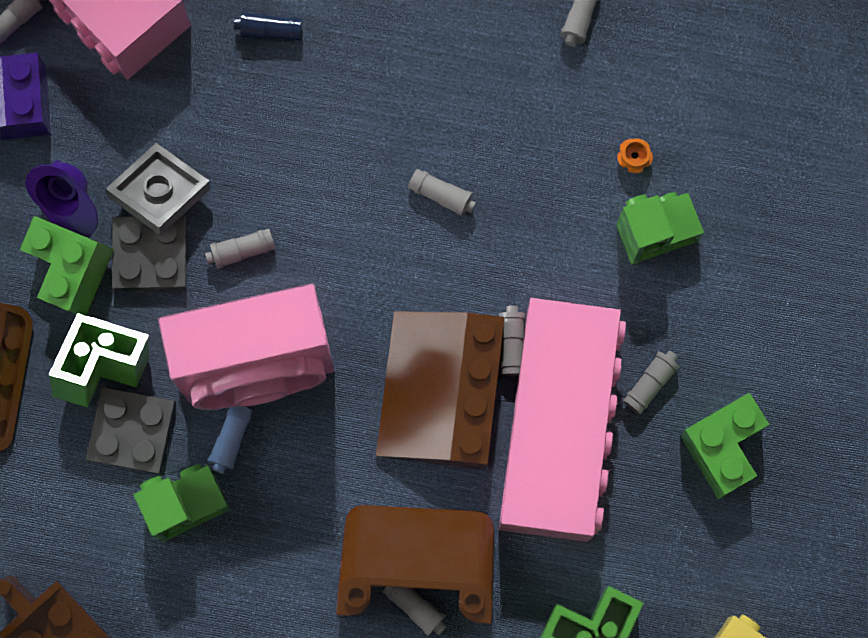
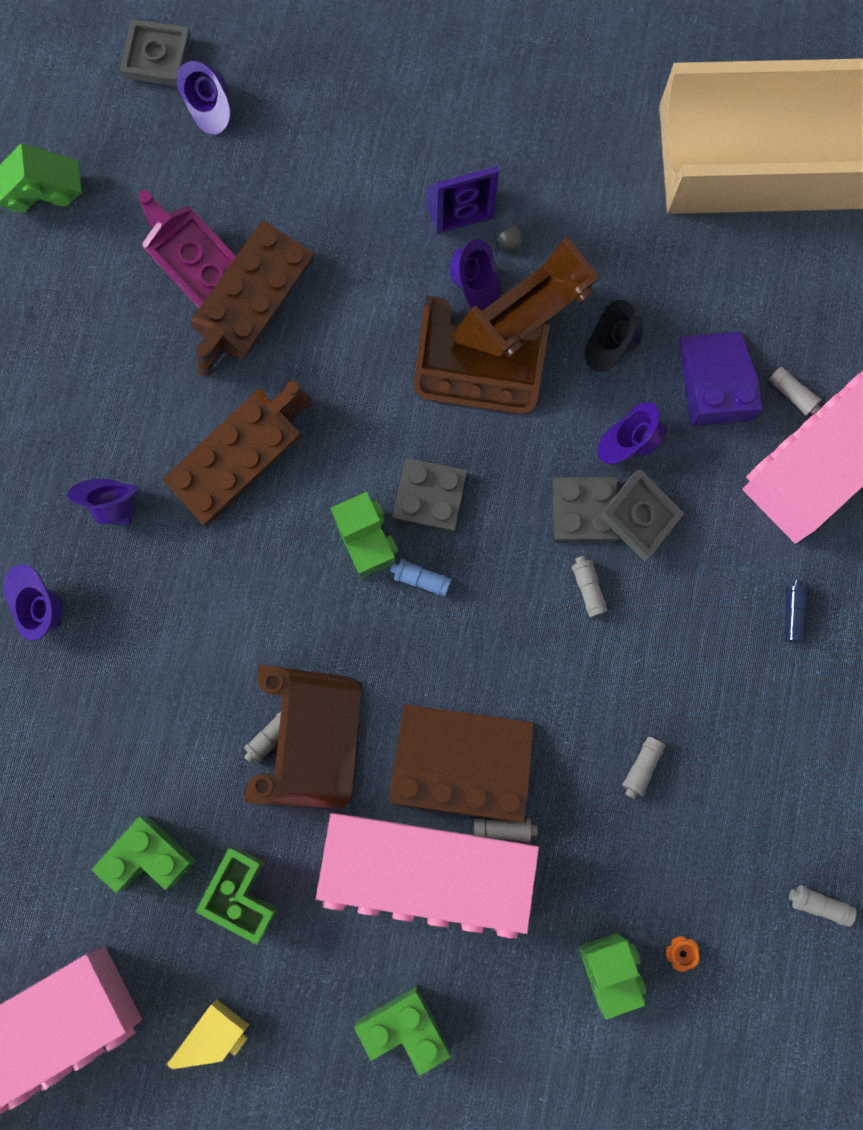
camera: 90 degrees right, 0 degrees up
(74, 268) = (574, 444): bright green brick -> none
(97, 351) = (495, 460): bright green brick -> none
(248, 349) = (490, 588): bright pink piece -> none
(651, 382) = (467, 962): light grey piece -> none

